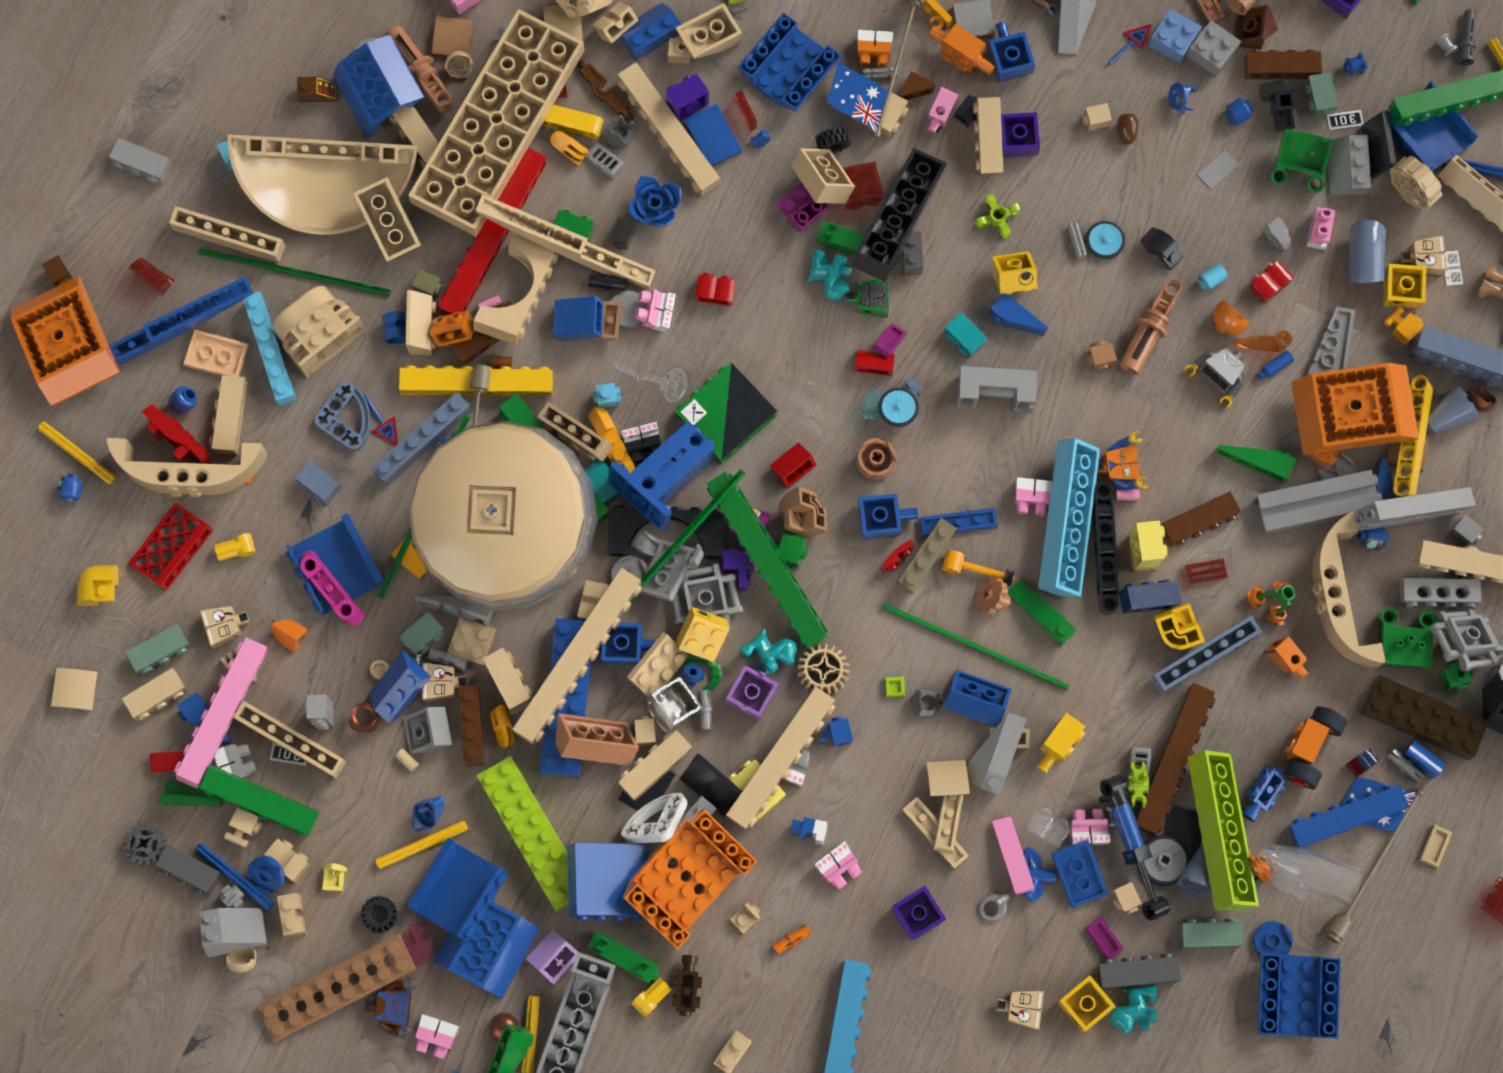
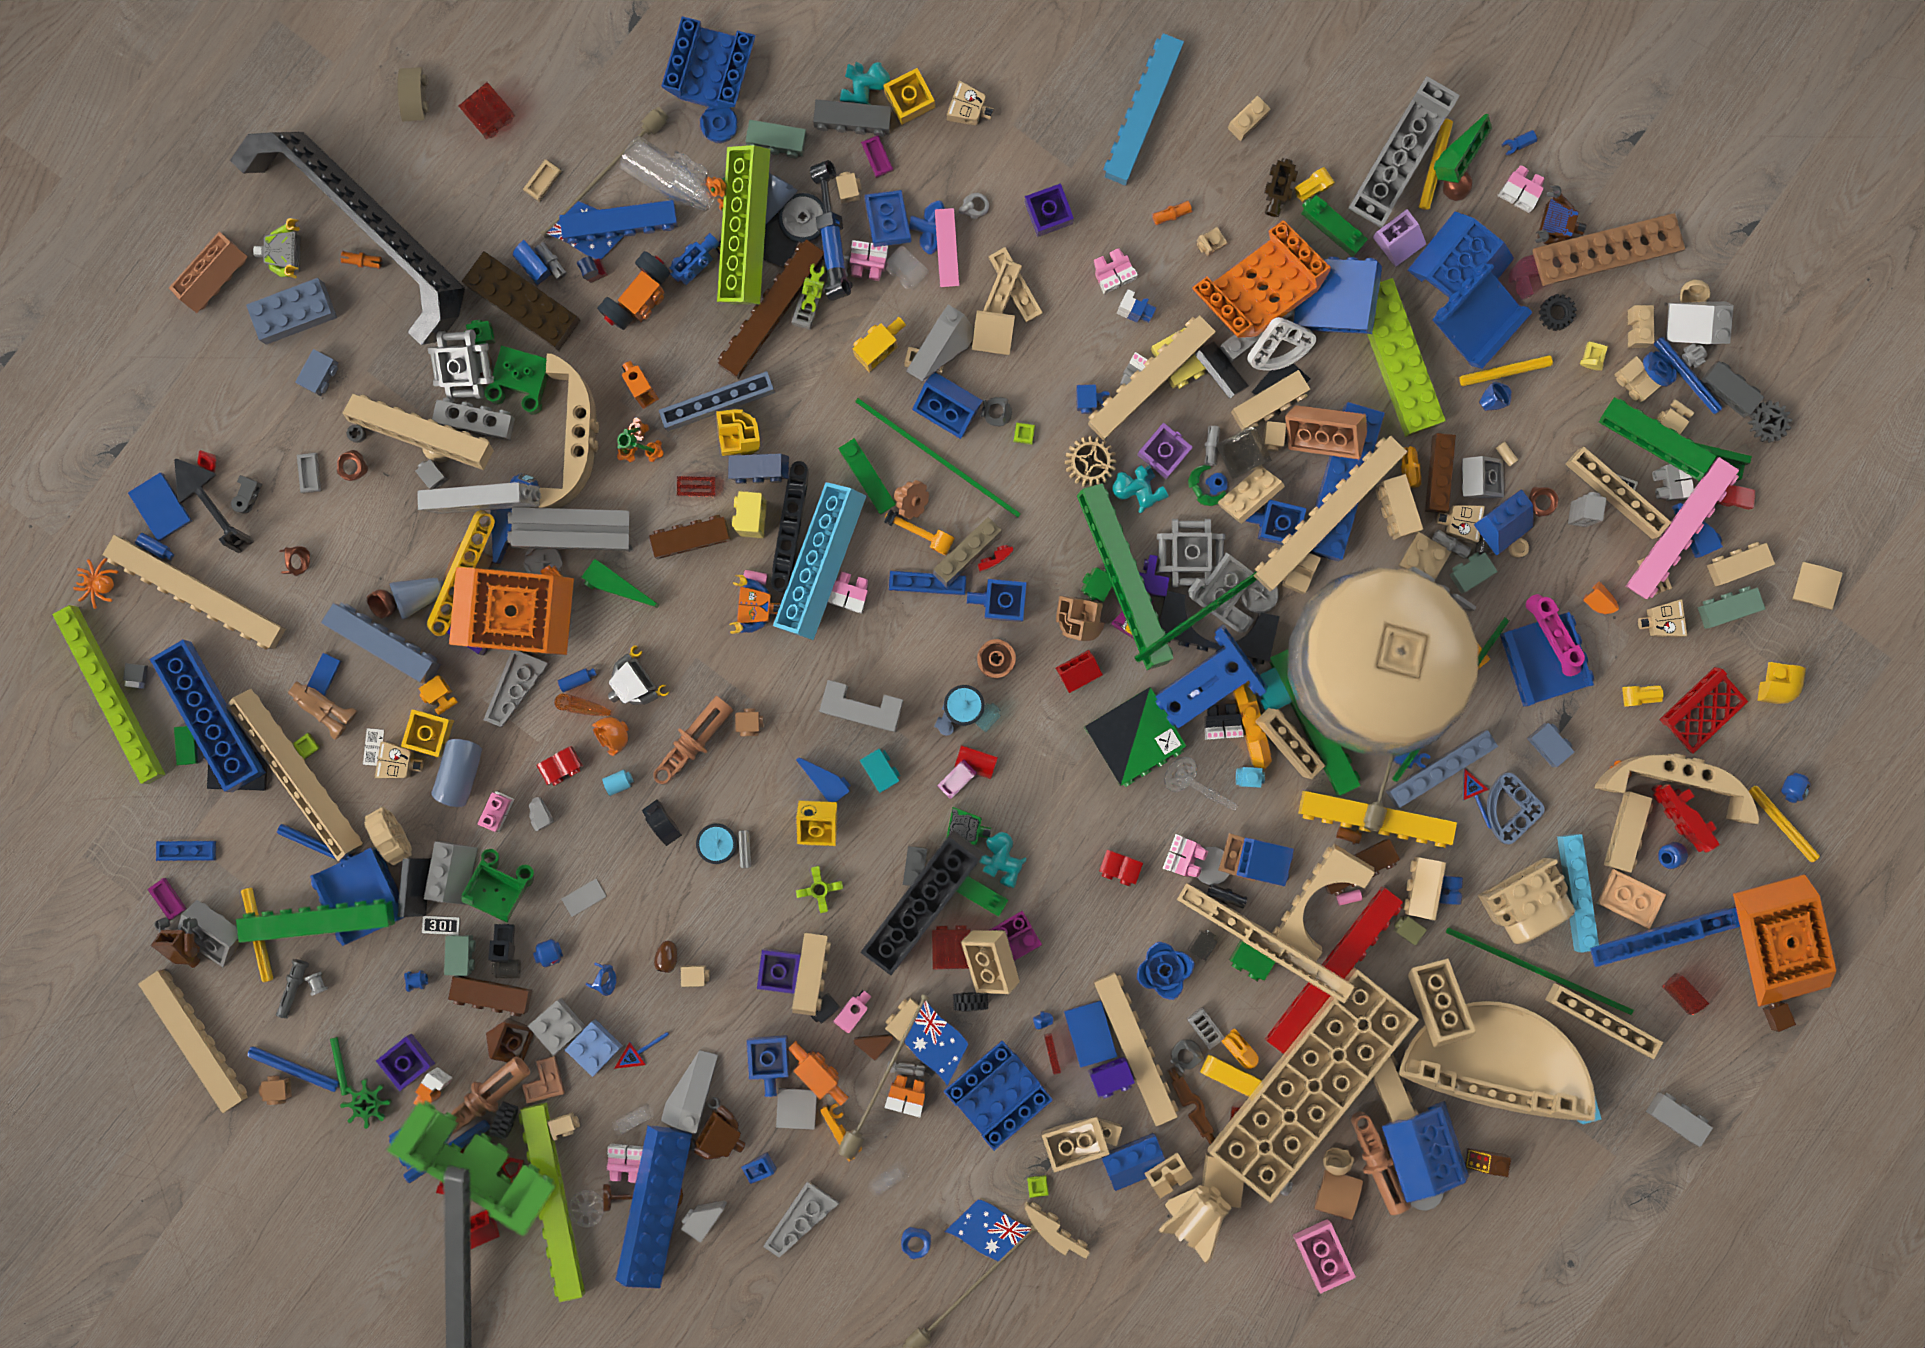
camera: 165 degrees left, 10 degrees up
(452, 328) = (1394, 874): orange brick -> none
(702, 634) = (1202, 514): yellow brick -> none

